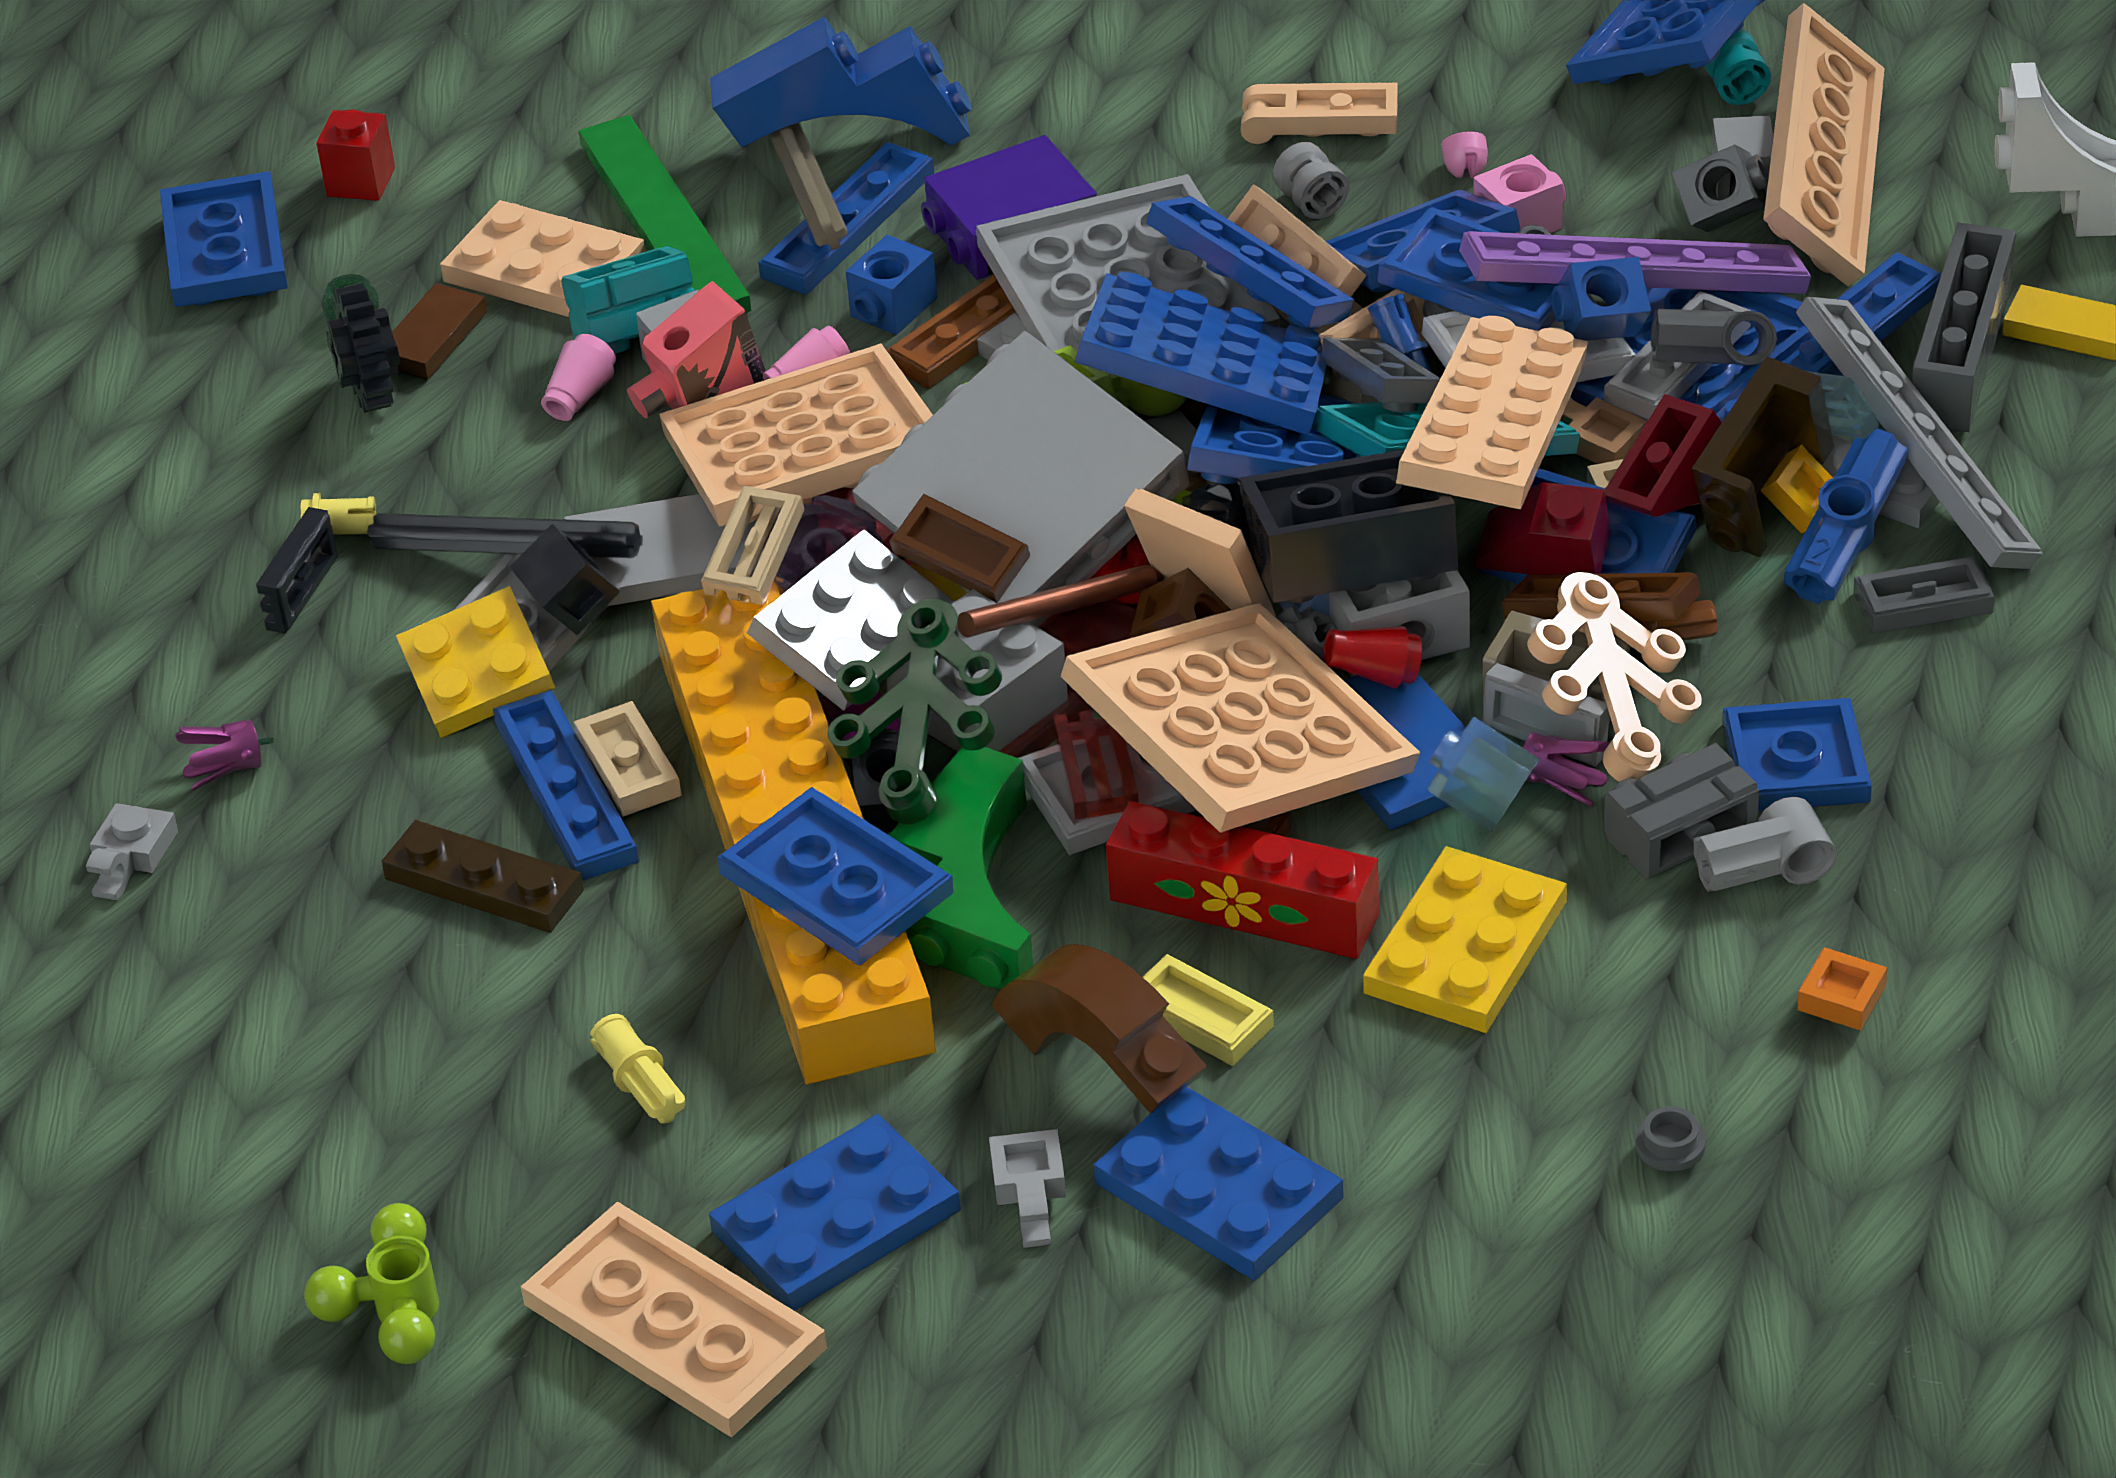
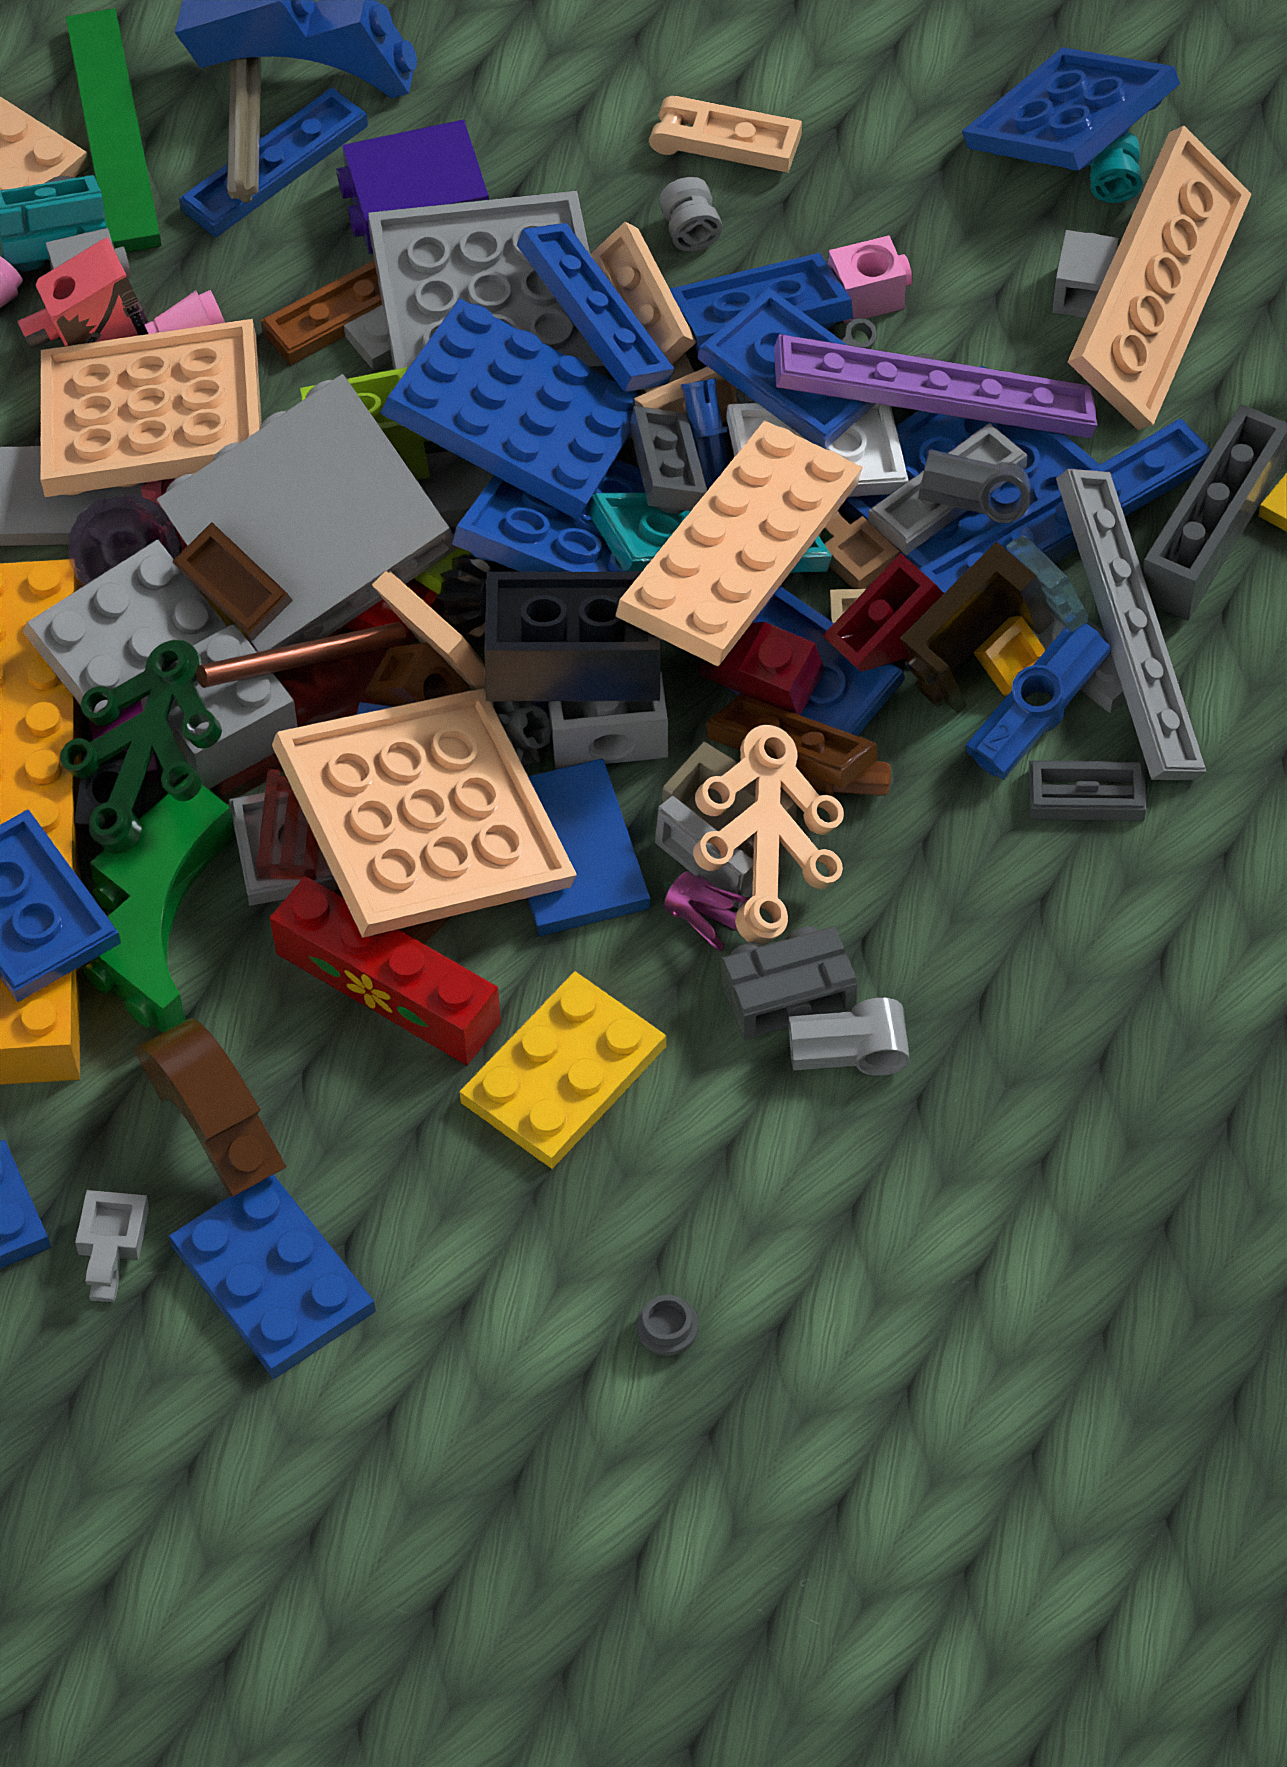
camera: 10 degrees right, 15 degrees up
(759, 584) = (65, 539): tan tile -> none
(891, 284) = (284, 251): blue brick -> none
(1209, 1011) = (313, 1090): light yellow tile -> none
(1378, 654) = (569, 761): red cone -> none
(1464, 152) = (839, 209): bright pink hinge -> none
(1480, 772) = (622, 907): clear light blue brick -> none
(1617, 283) = (908, 419): blue brick -> none
(1699, 181) = (1028, 309): dark grey brick -> none
(1800, 751) = (915, 938): blue tile -> none
(1842, 988) = (867, 1202): orange plate -> none

